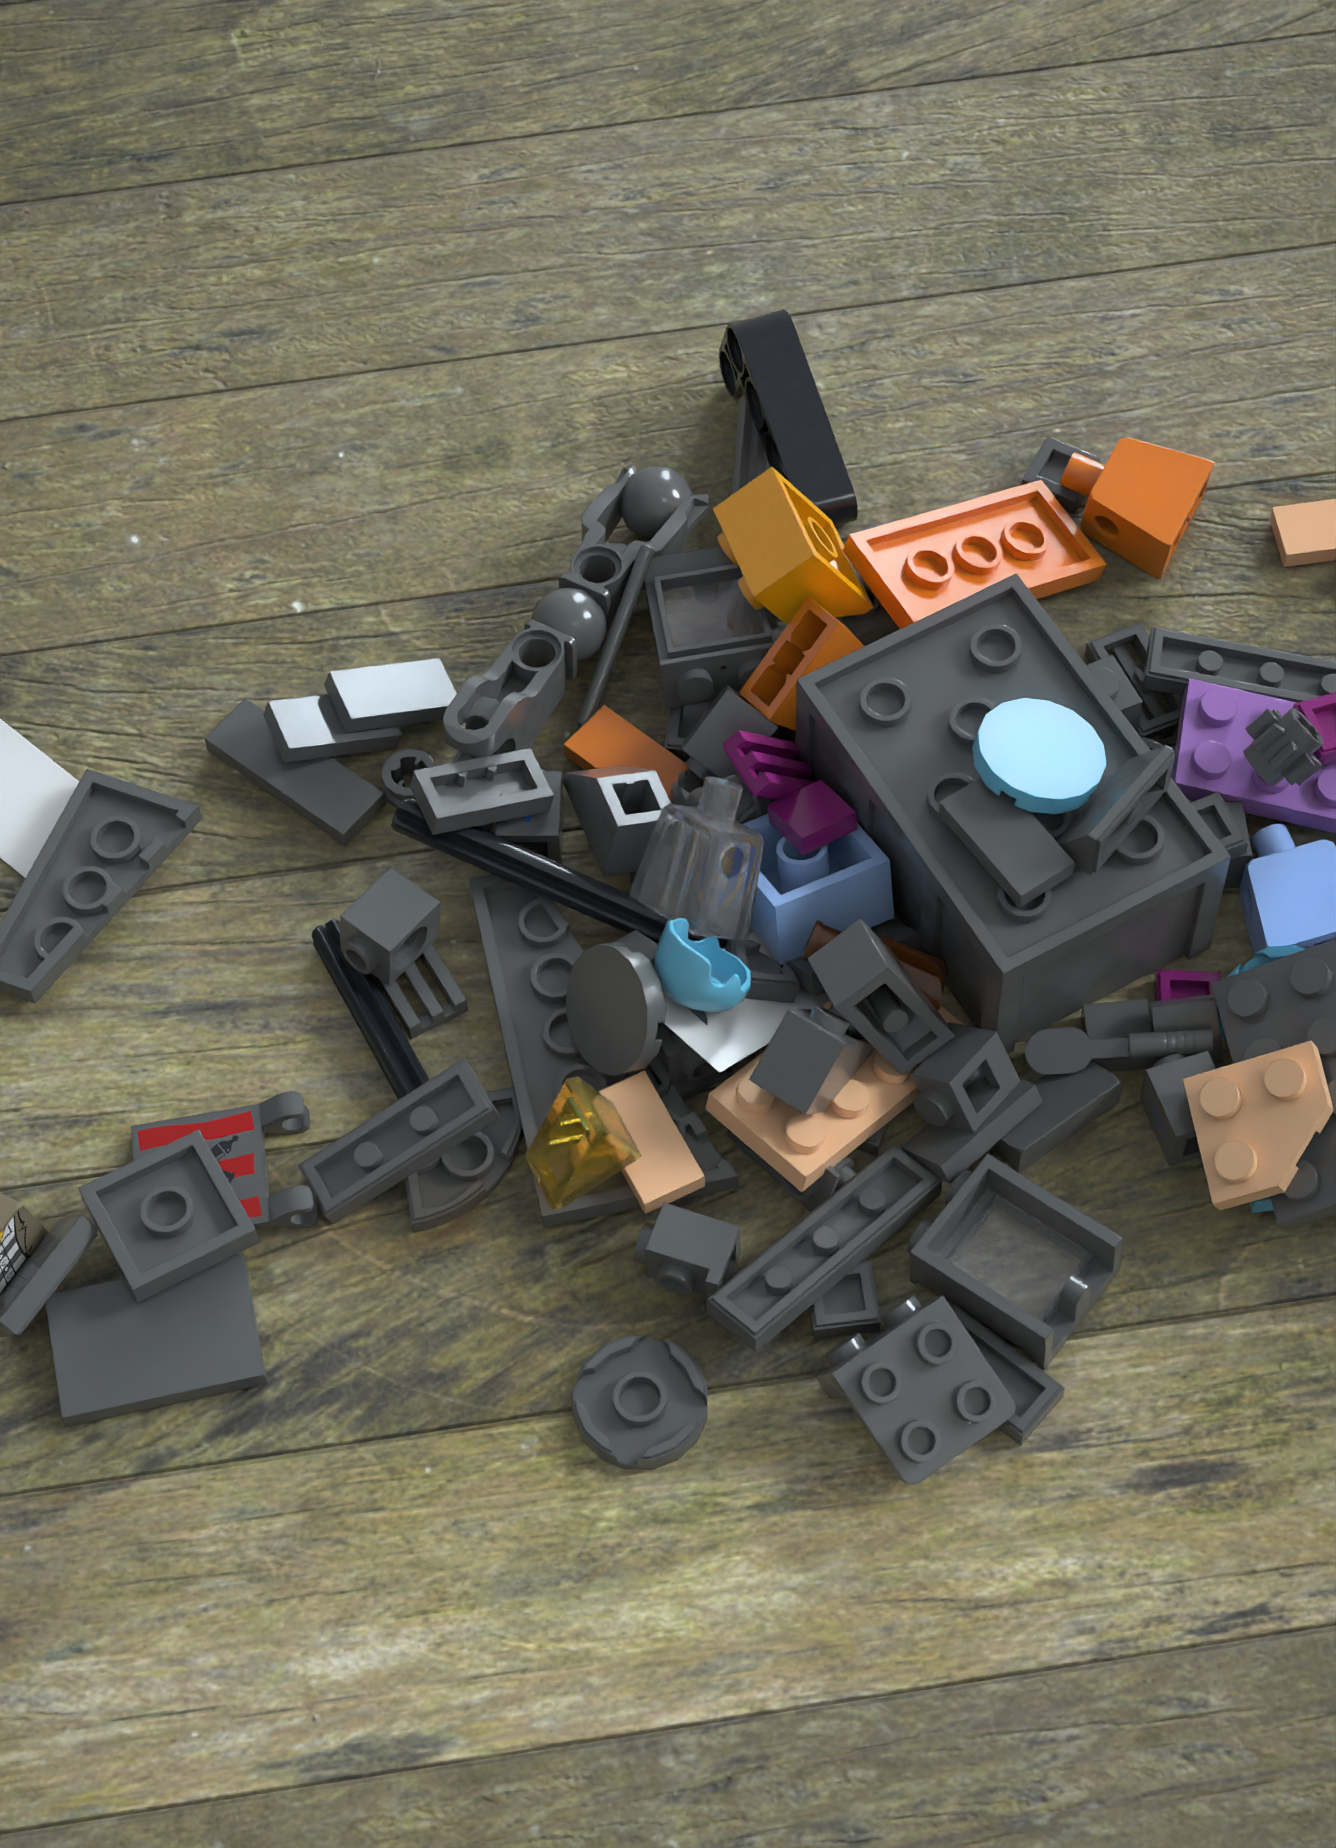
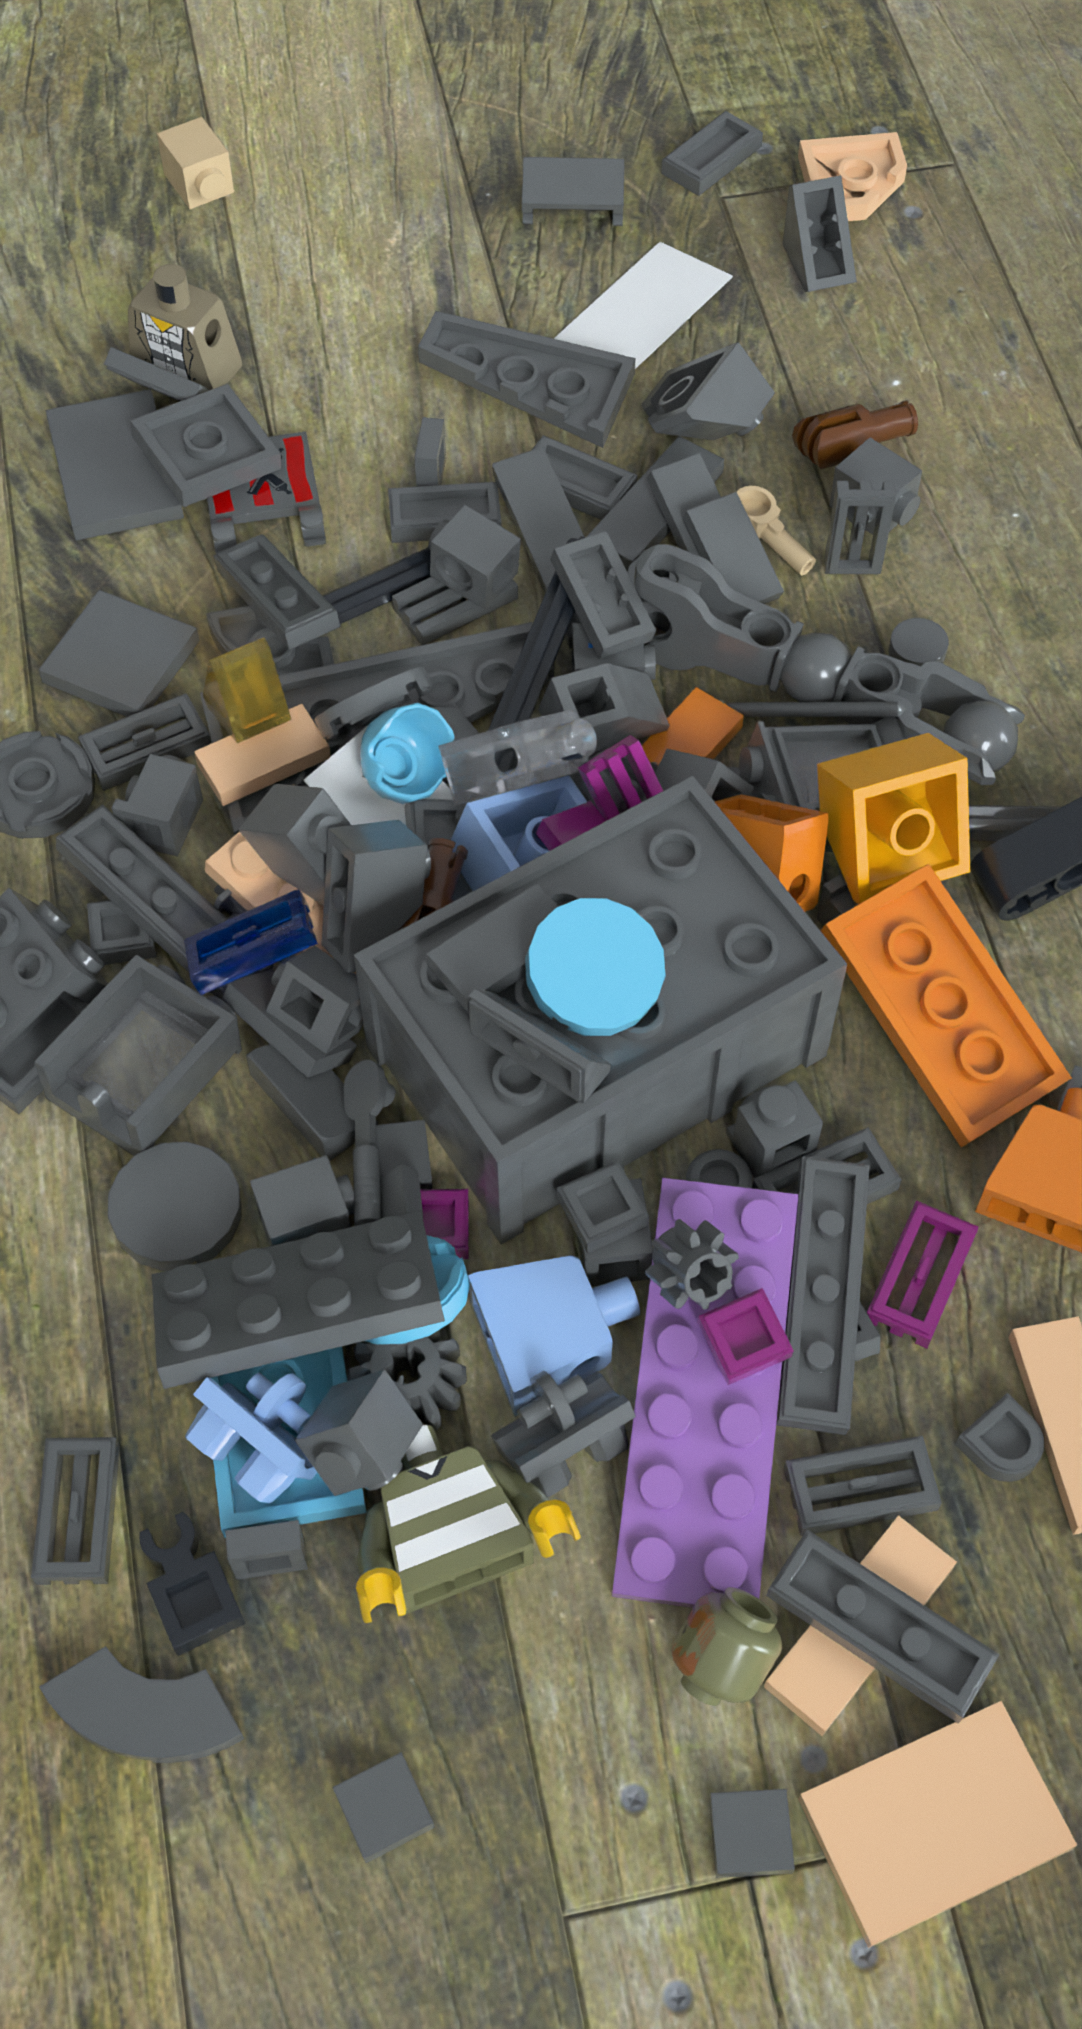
camera: 85 degrees right, 0 degrees up
(161, 708) = (710, 396): none -> dark grey slope
(208, 983) = (430, 452): none -> dark grey tile
(226, 575) = (836, 434): none -> reddish brown arm
(245, 847) = (586, 480): none -> dark grey tile
(278, 981) = (420, 509): none -> dark grey tile
(313, 560) = (879, 464): none -> dark grey brick
(316, 666) = (764, 516): none -> tan plate
(330, 870) = (537, 510): none -> dark grey tile
(391, 567) = (861, 499): none -> dark grey tile
(461, 1318) = (119, 655): none -> dark grey tile
(519, 551) = (918, 641): none -> dark grey tile
(562, 1237) = (129, 759): none -> dark grey tile
(926, 1185) = (249, 942): none -> clear blue tile
(1175, 1234) = (174, 1205): none -> dark grey tile
(1225, 623) = (901, 1319): none -> magenta tile
(1258, 1121) = (243, 1237): light nougat plate -> none

